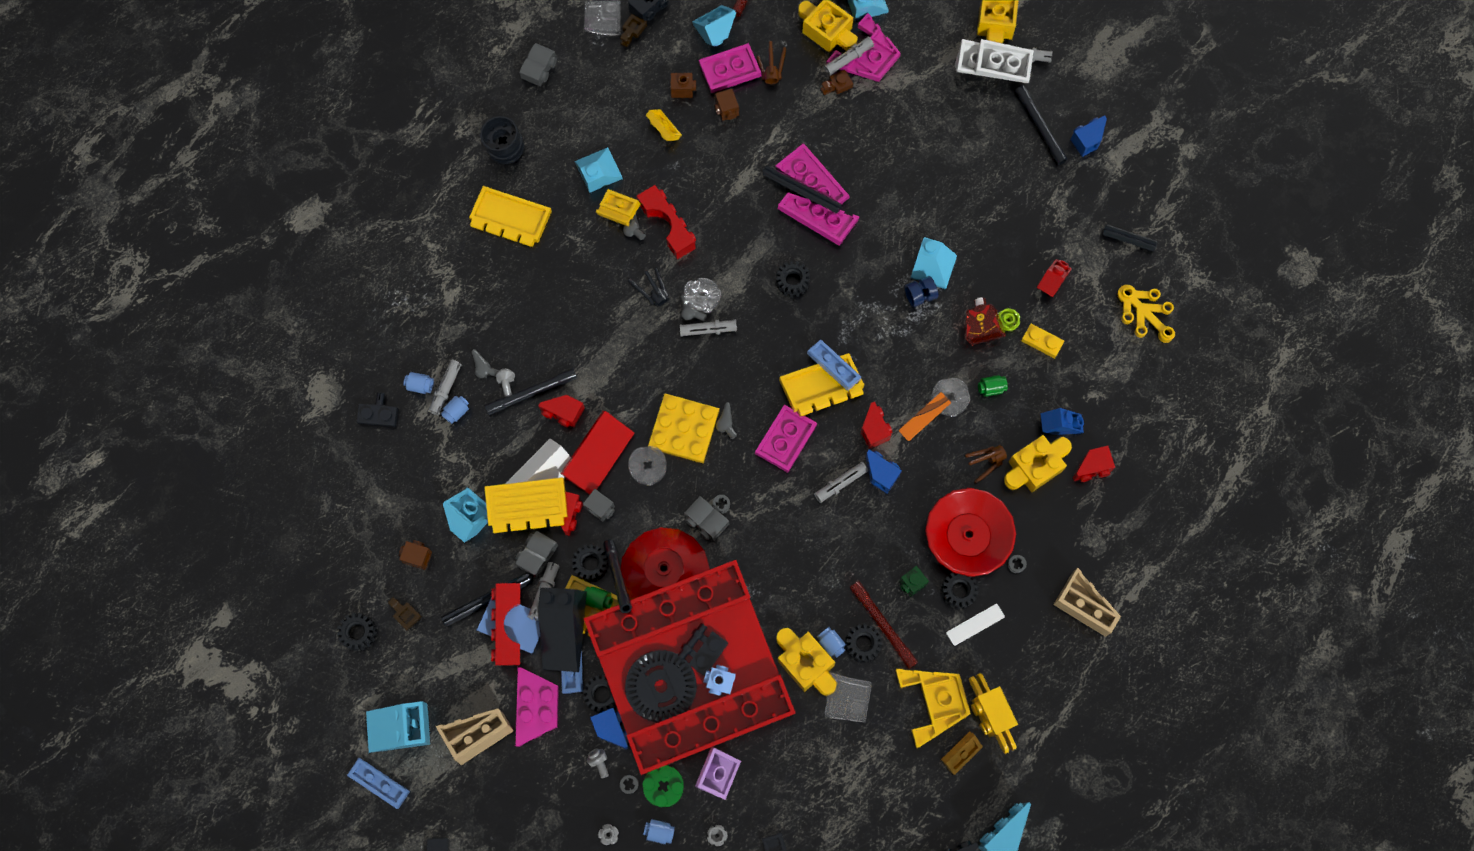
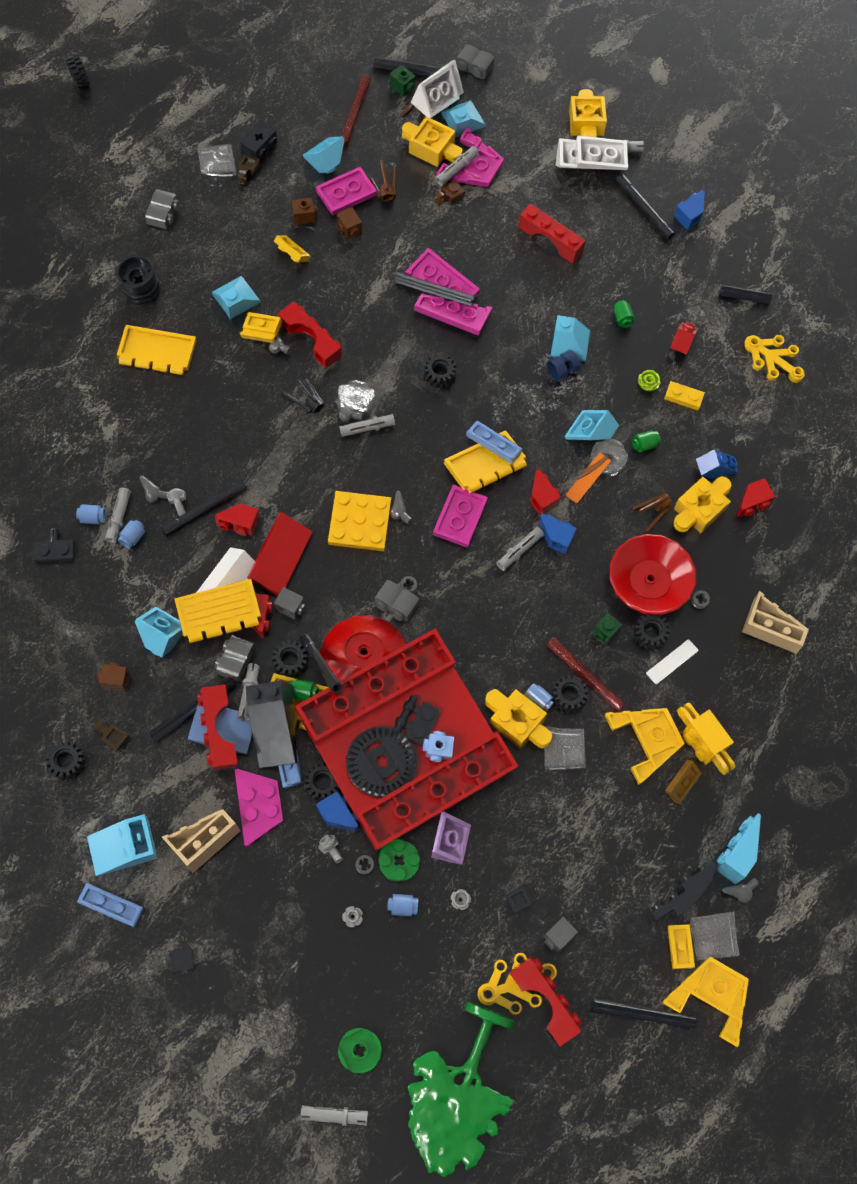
camera: 15 degrees left, 5 degrees down
(658, 465) = (330, 570): clear plate -> none
(939, 362) = (593, 426): none -> medium azure slope
(950, 156) = (567, 242): none -> red arch
(983, 323) = (627, 386): clear red torso -> none
(995, 243) = (624, 314): none -> green brick

